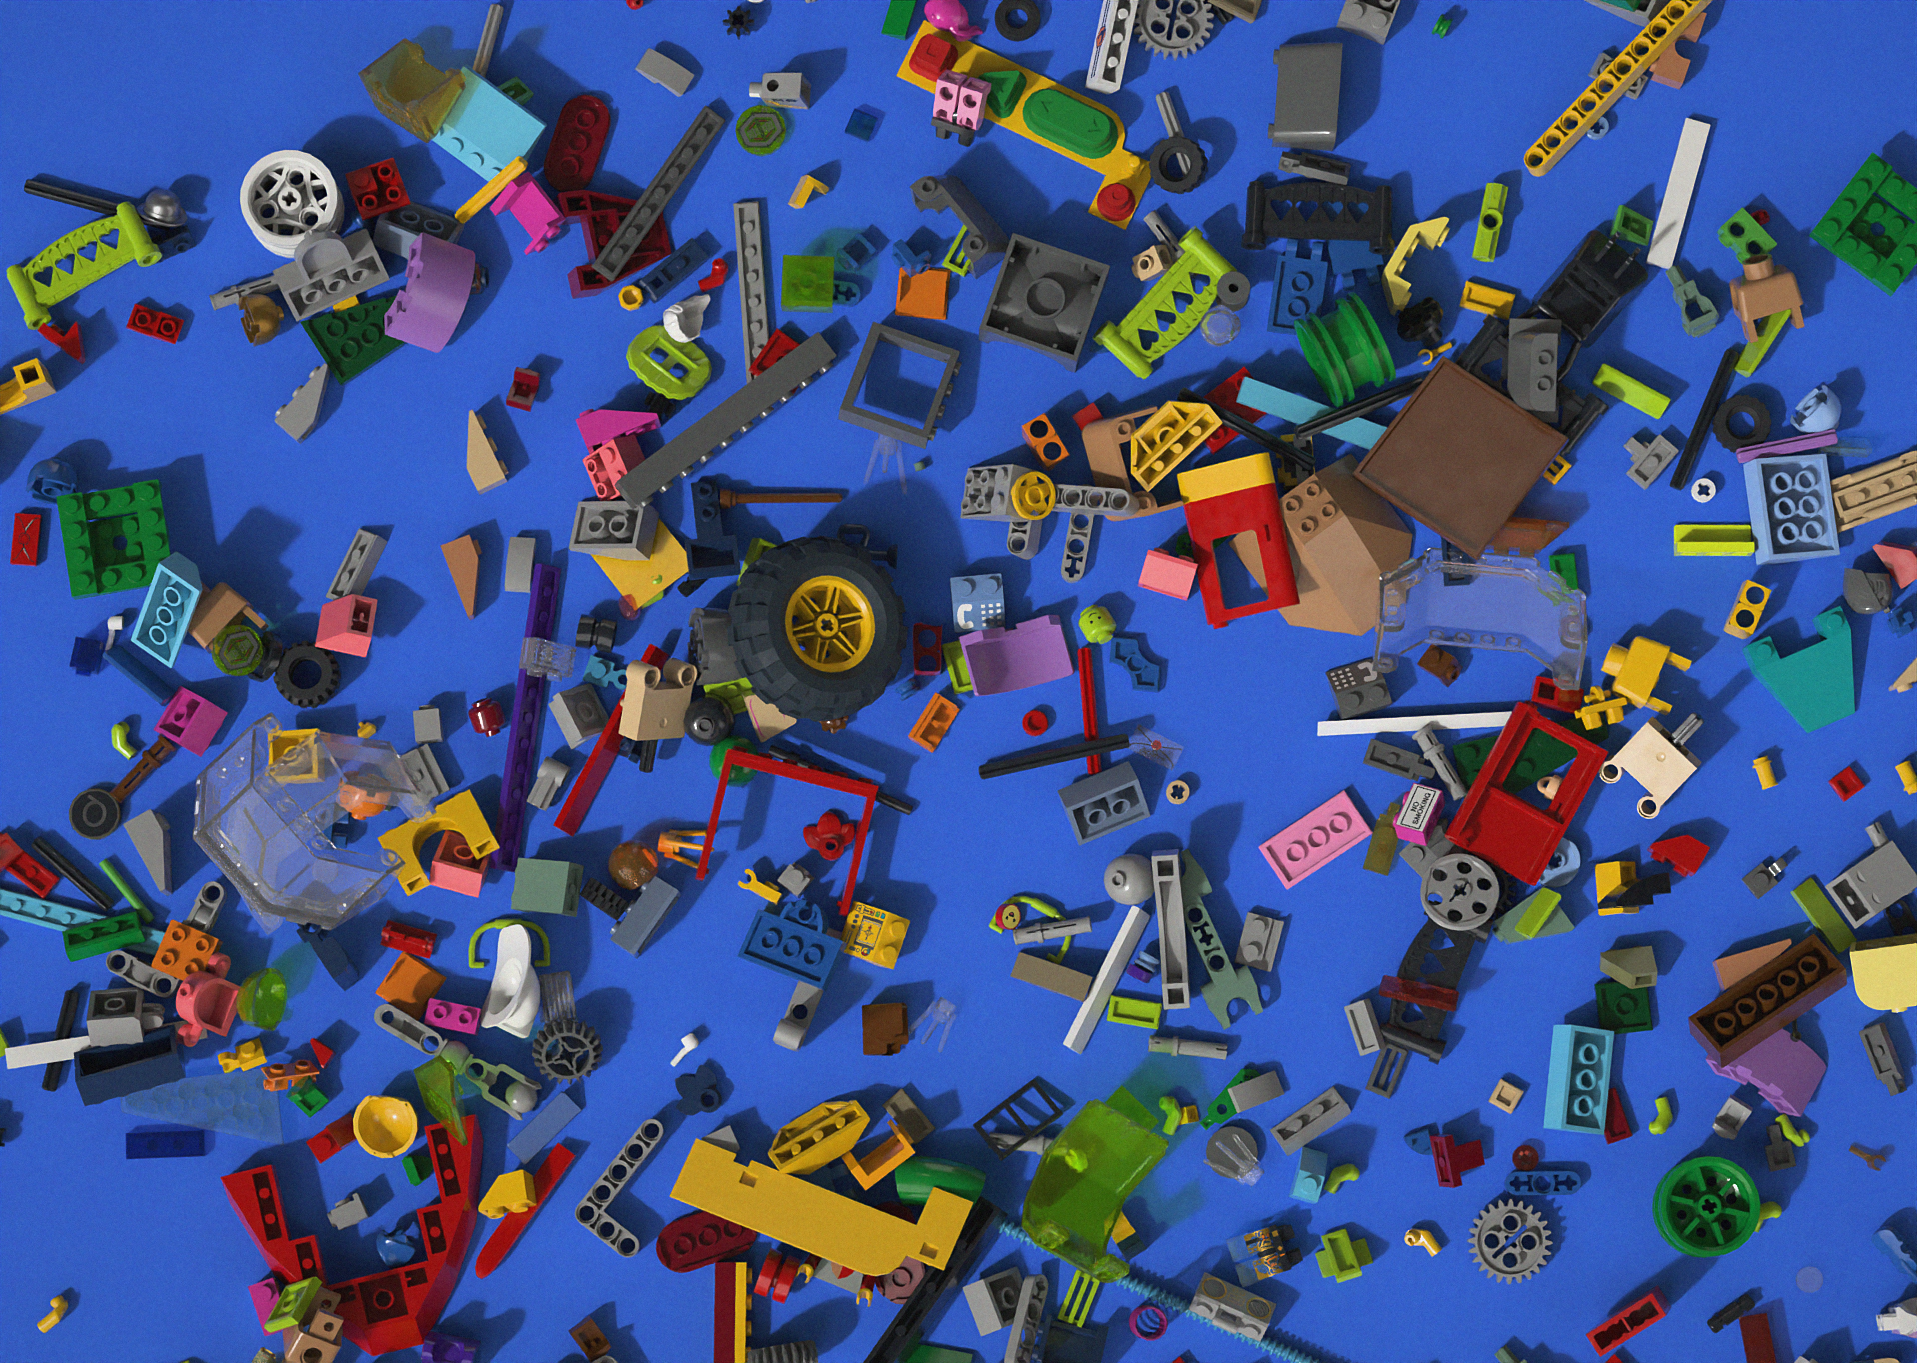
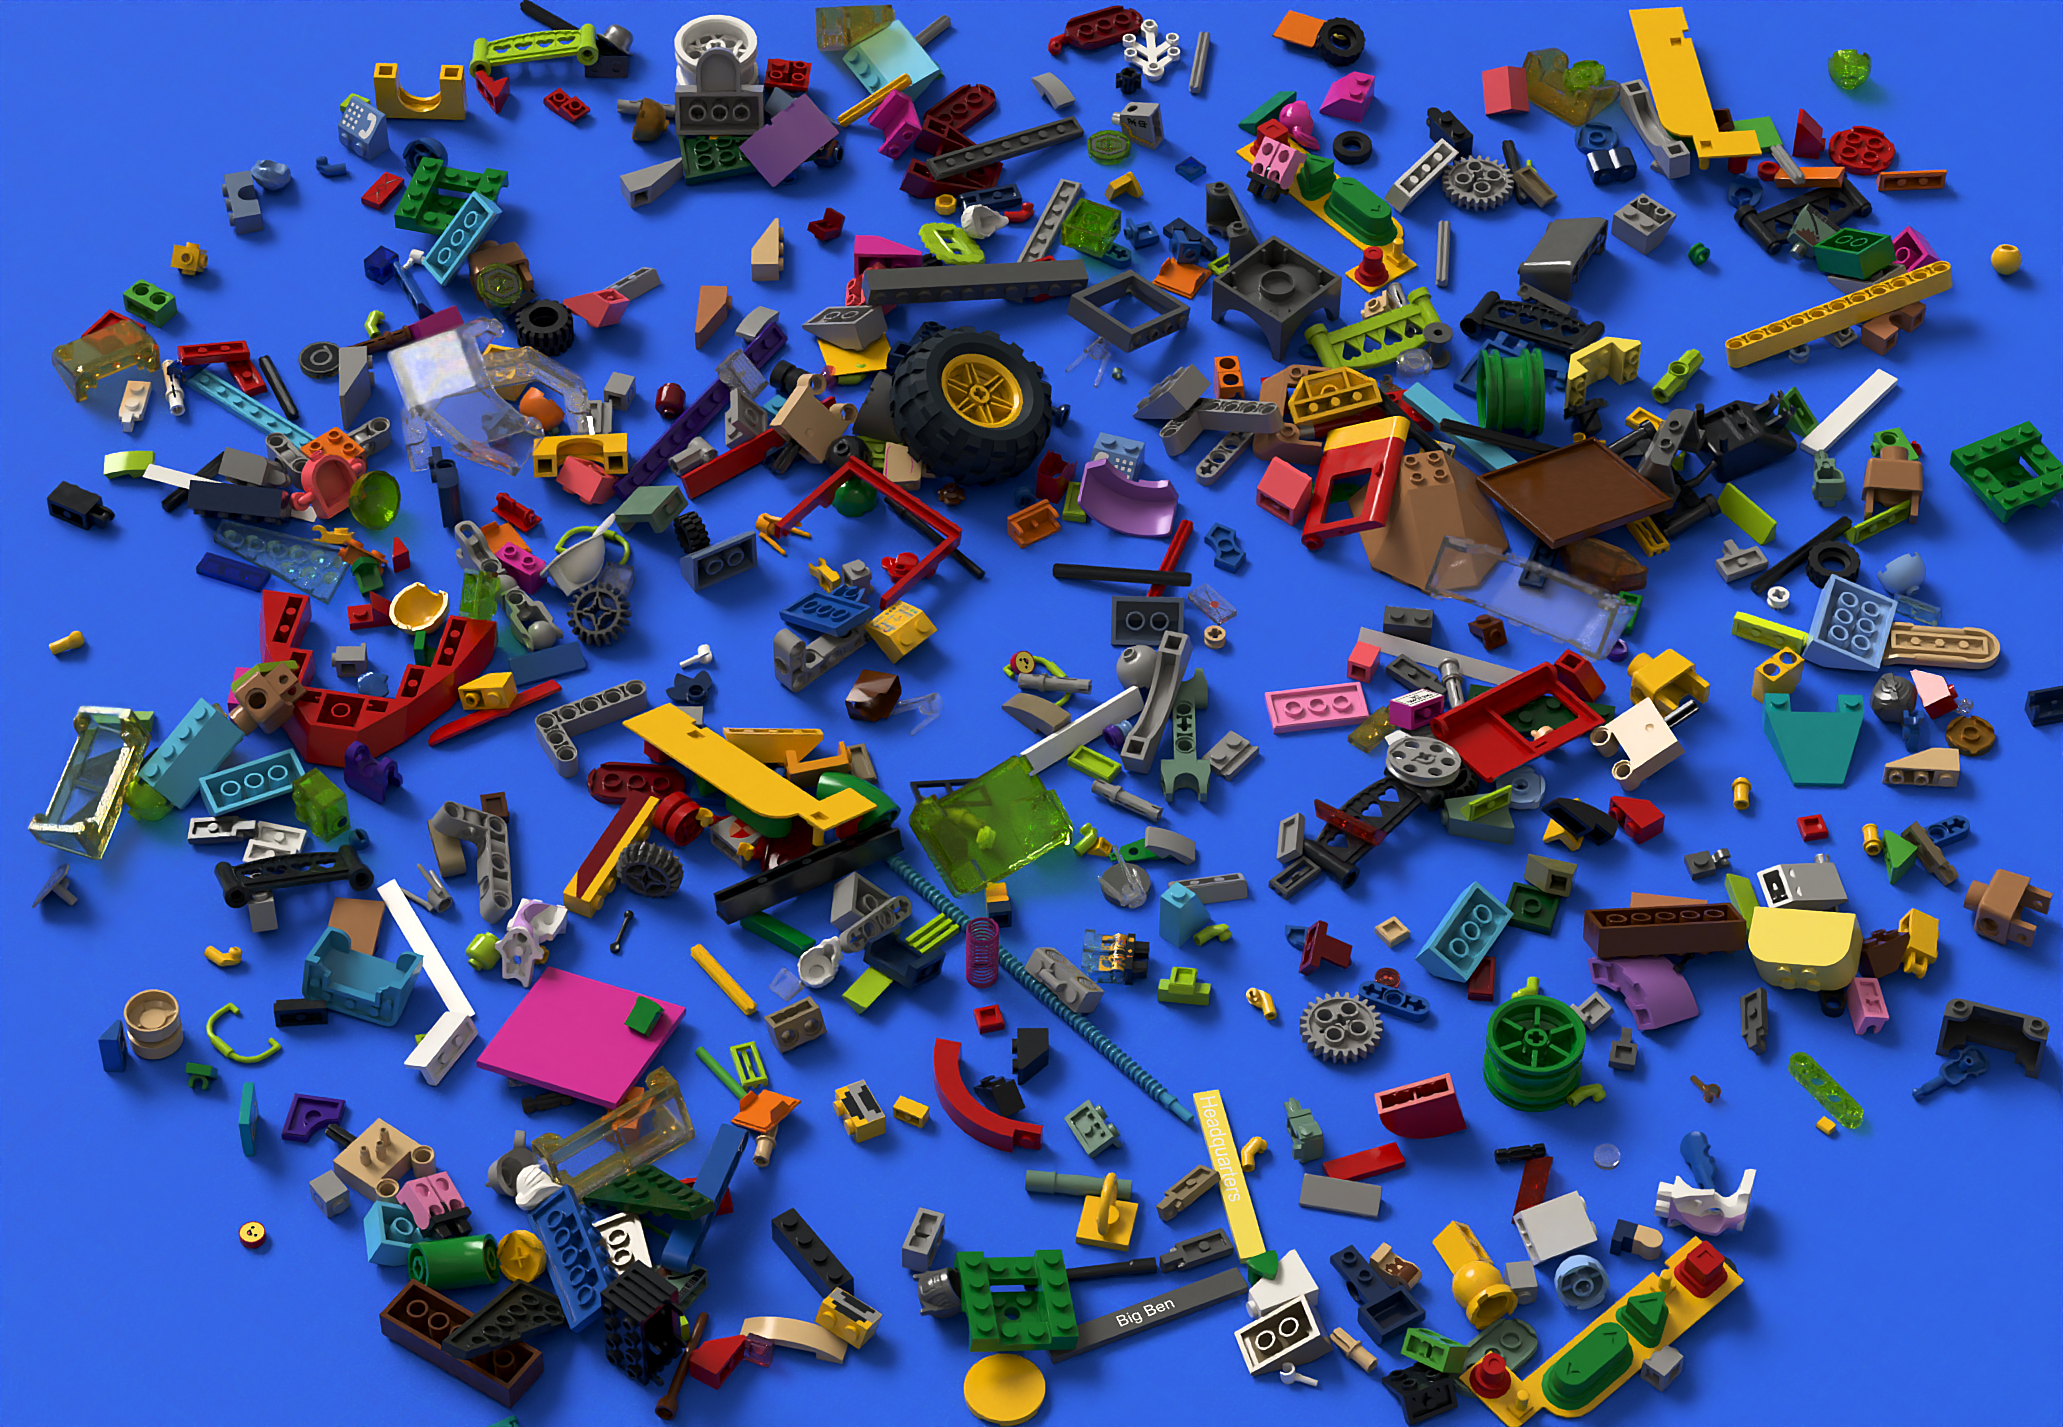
camera: 25 degrees right, 35 degrees down
(103, 936) = (261, 426): green slope -> none
(126, 890) = (313, 411): bright green bar -> none
(632, 864) = (728, 519): clear orange helmet -> none
(914, 235) = (1208, 249): none -> dark blue hinge
(1033, 495) = (1197, 392): yellow wheel -> none
(1035, 723) = (1119, 556): red tile -> none
(1097, 624) = (1207, 508): lime head -> none
(1197, 169) = (1439, 270): black tyre -> none
(1208, 361) = (1387, 385): none -> hand
(1338, 763) = (1363, 662): none -> coral brick
(1612, 708) = (1613, 694): yellow hips -> none
(1787, 446) = (1870, 582): medium lavender axle -> none
(1790, 1132) = (1647, 1052): lime arm -> none

